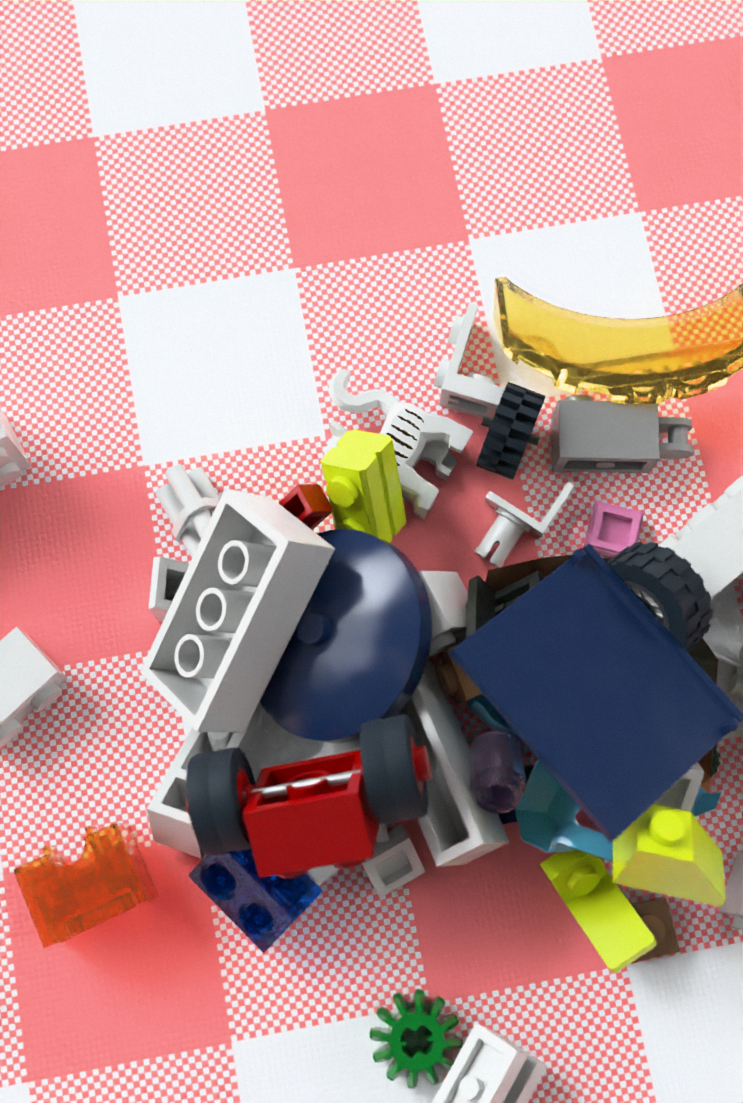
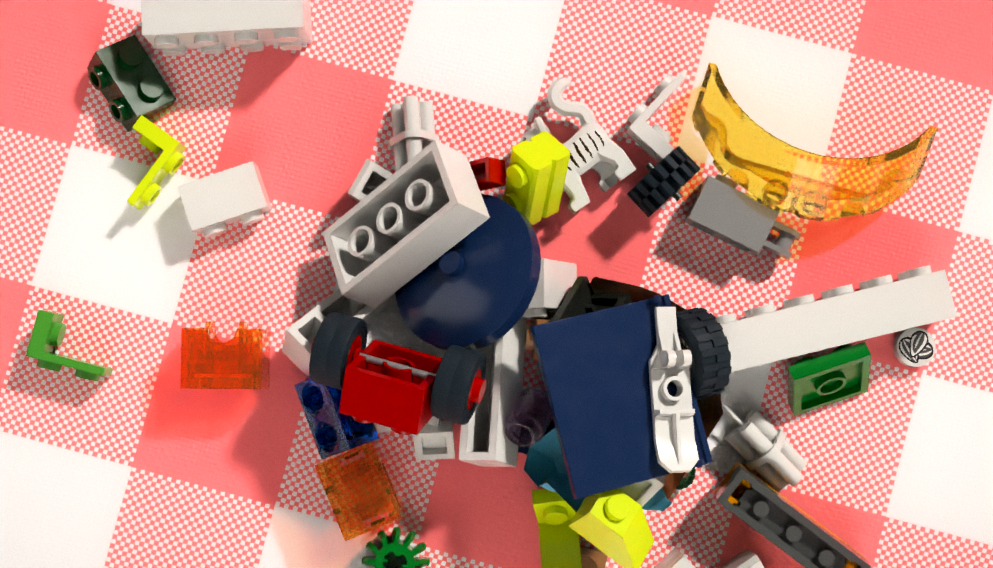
camera: 30 degrees right, 10 degrees up
(330, 970) = (359, 491): none -> clear orange piece
(511, 525) = (632, 248): white bracket -> none
(612, 528) = (704, 286): bright pink tile -> none
(668, 678) = (671, 415): none -> white piece

